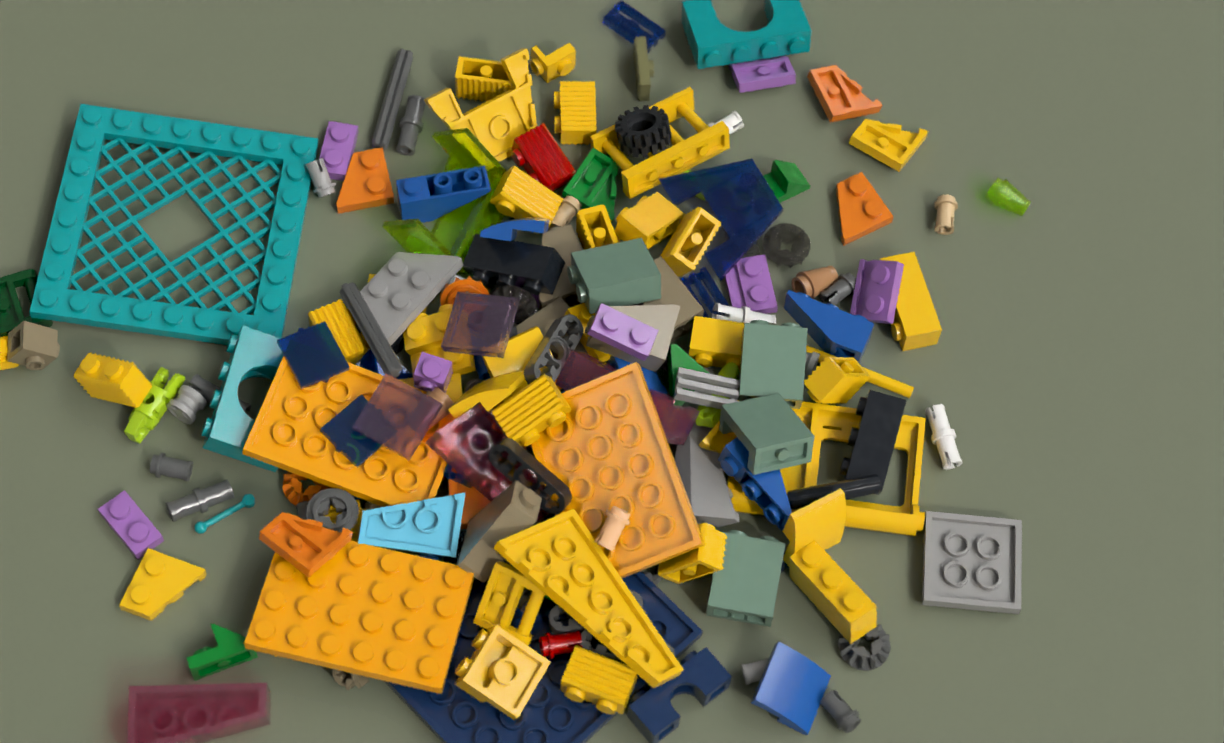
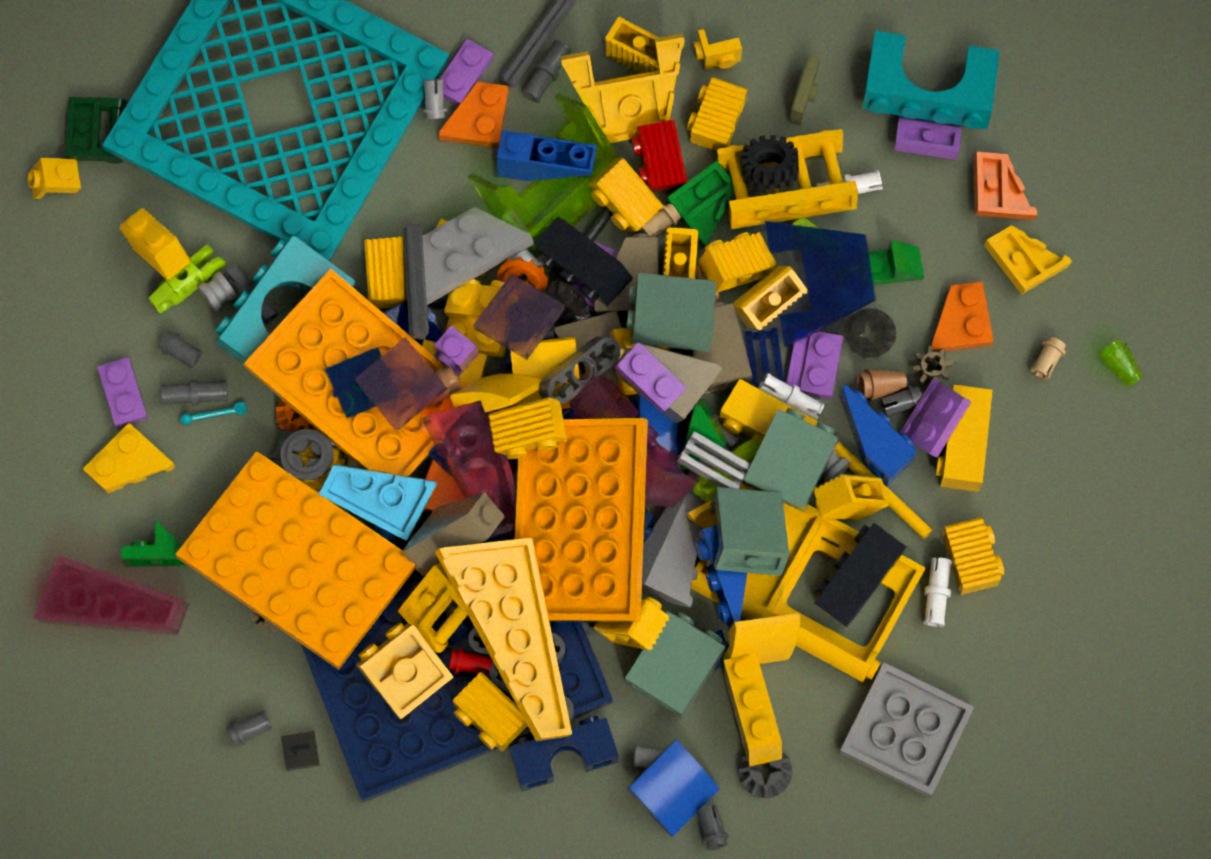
camera: 25 degrees right, 10 degrees up
(32, 345) = (94, 180): dark tan brick -> none
(303, 541) = (265, 477): orange wing -> none
(313, 355) = (346, 291): clear blue piece -> none
(508, 229) = (590, 223): blue slope -> none
(544, 476) = (489, 485): black beam -> none
(613, 527) = (559, 571): light nougat pin -> none
(630, 29) = (831, 59): clear blue tile -> none
(852, 488) = (808, 612): black axle -> none
(855, 244) = (929, 358): none -> dark tan gear
(960, 394) = (972, 555): none -> yellow brick

